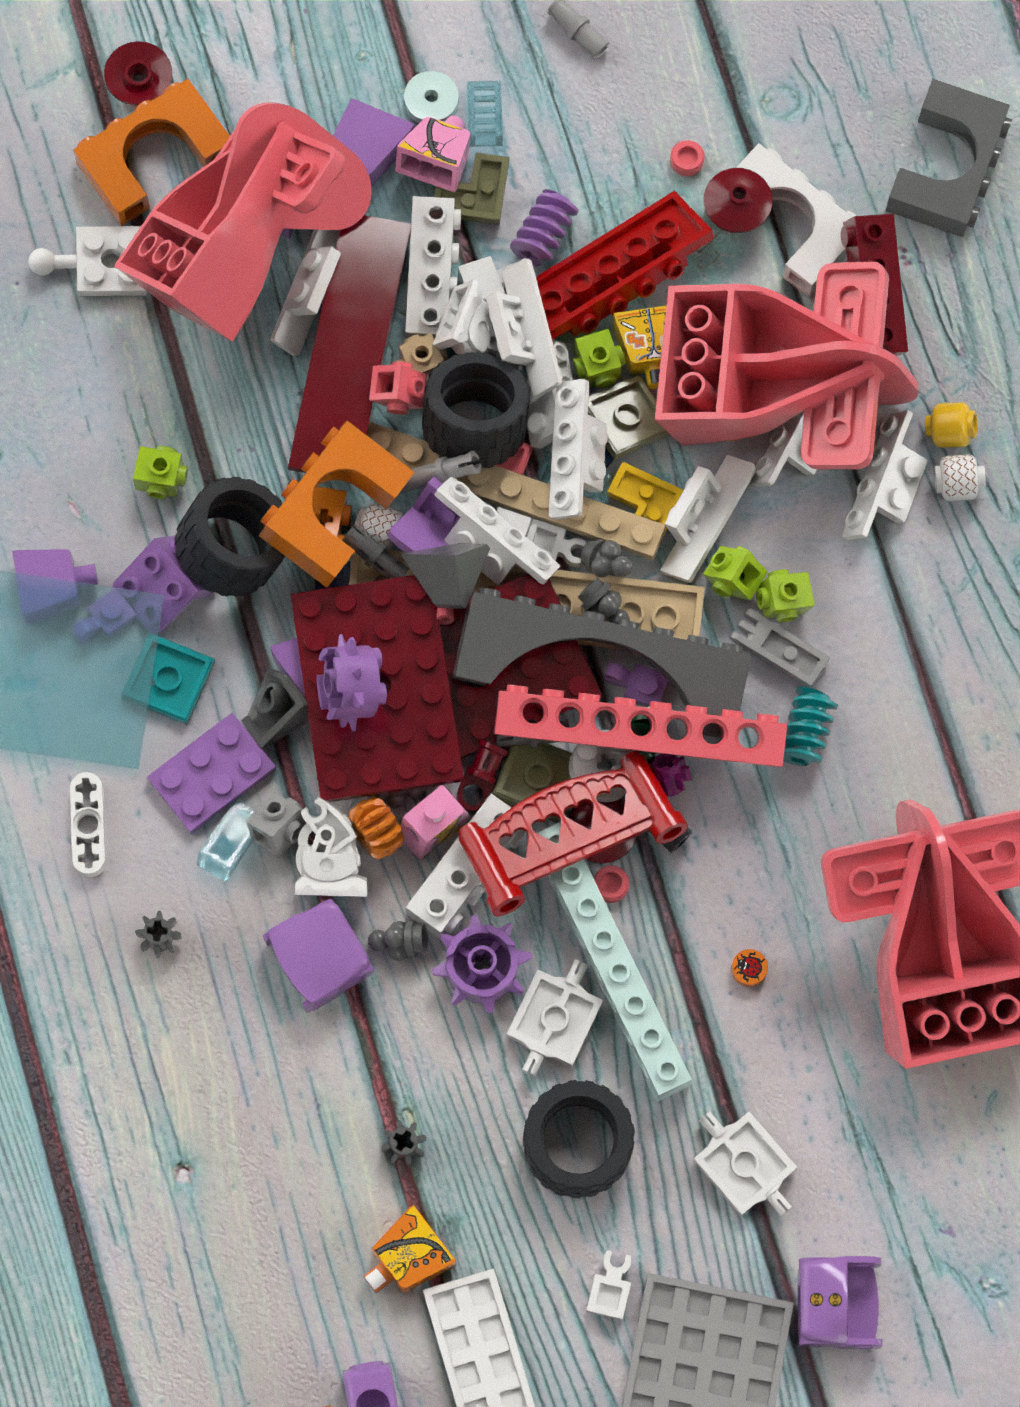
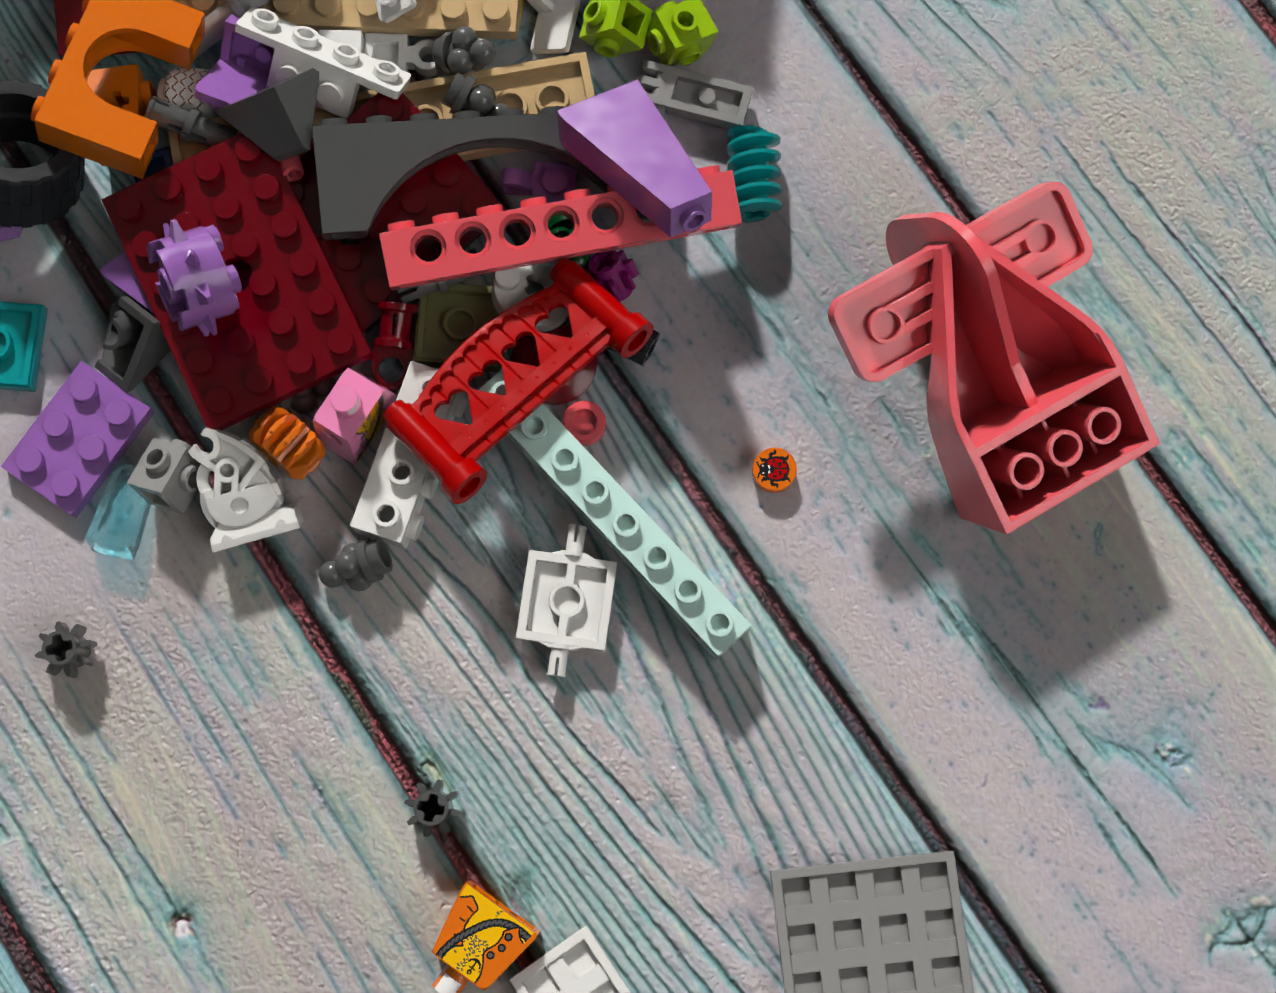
camera: 15 degrees left, 5 degrees up
(319, 954) = (263, 614): medium lavender piece -> none
(478, 944) = (449, 542): medium lavender brick -> none
(589, 1095) = (639, 682): black tyre -> none
(609, 1292) = (732, 909): white plate -> none
(716, 691) = (638, 156): none -> medium lavender slope
(745, 1163) = (843, 702): white plate -> none
(838, 1302) = (1005, 835): medium lavender piece -> none

